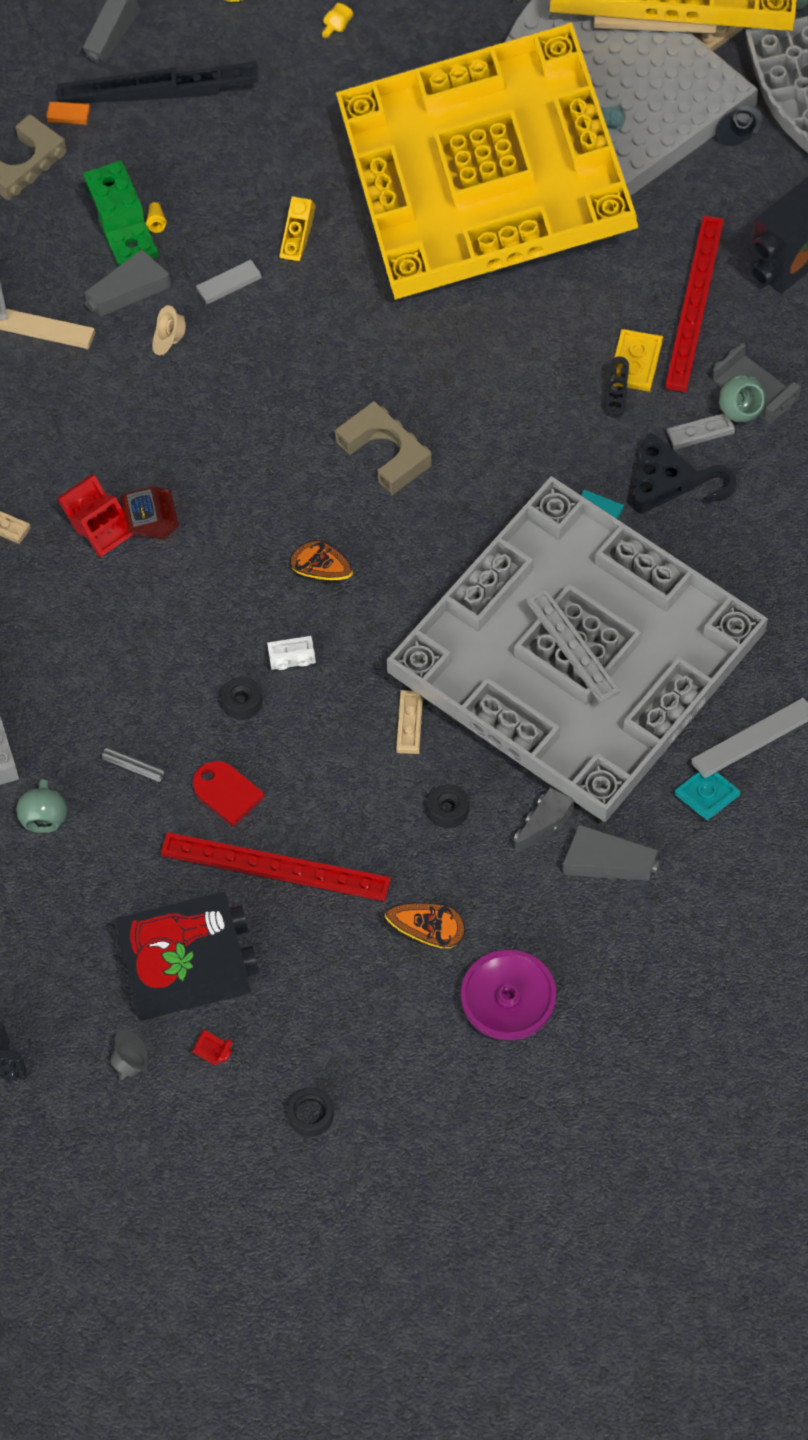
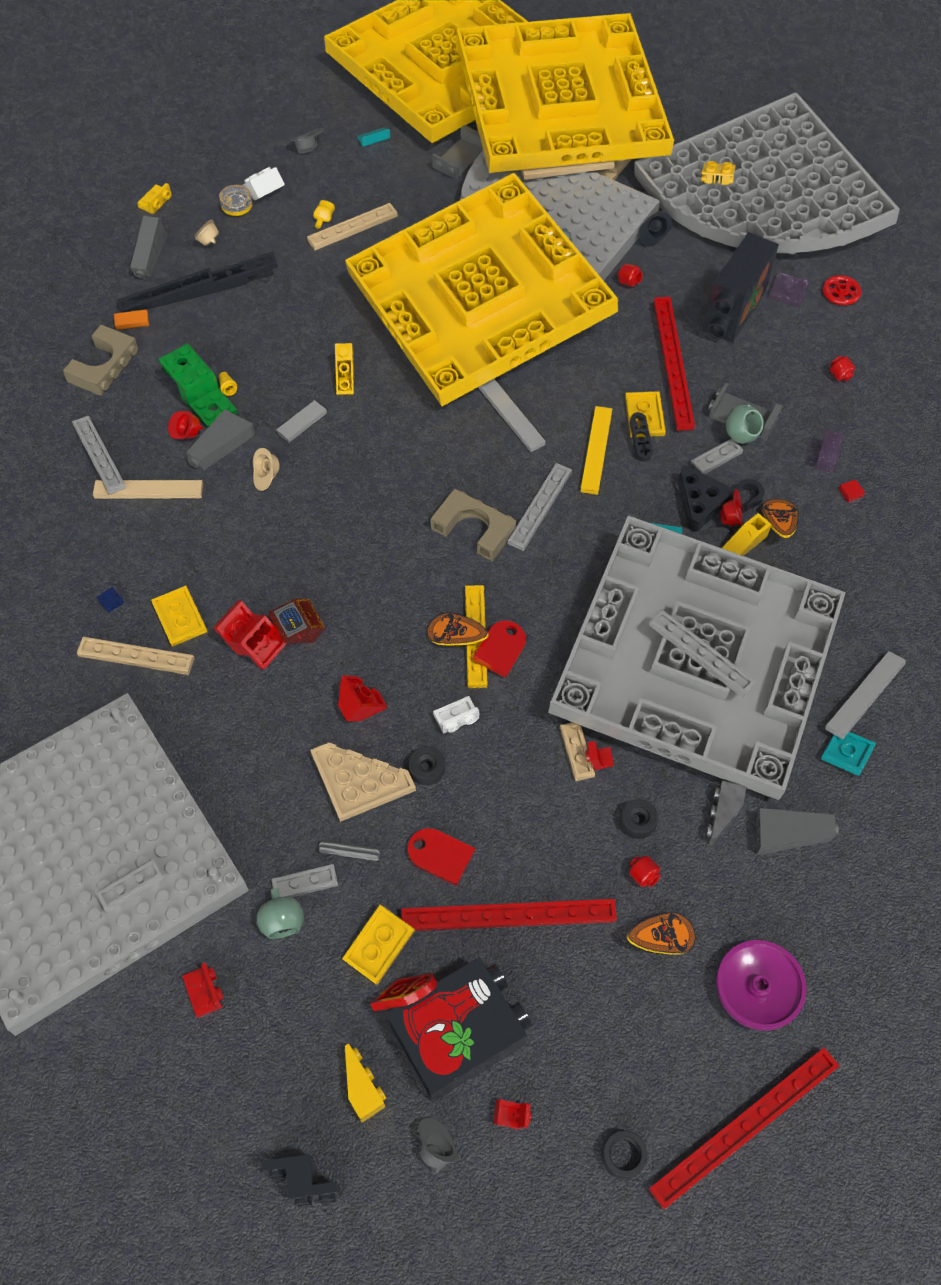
camera: 20 degrees left, 0 degrees up
(26, 477) = (179, 616): none -> yellow tile
(71, 988) = (361, 1091): none -> yellow slope
(80, 784) = (306, 881): none -> light grey tile
(91, 259) = (183, 425): none -> red piece
(133, 860) = (378, 944): none -> yellow tile
(140, 906) = (405, 991): none -> red tile
(163, 697) = (357, 781): none -> tan plate
(187, 19) = (207, 233): none -> tan piece
(190, 612) = (357, 700): none -> red slope
(339, 590) = (475, 610): none -> yellow tile
(364, 593) = (501, 649): none -> red tile
(367, 44) = (352, 226): none -> tan tile
(428, 734) = (599, 758): none -> red bracket
(432, 858) = (644, 871): none -> red head
(440, 1119) = (743, 1128): none -> red plate
(469, 443) = (539, 507): none -> light grey tile
(476, 327) = (512, 415): none -> light grey tile
(560, 391) = (596, 450): none -> yellow tile
(685, 180) = (630, 275): none -> red head
(691, 498) = (732, 511): none -> red piece
(691, 533) = (748, 535): none -> yellow slope
(743, 517) = (782, 516): none -> shield

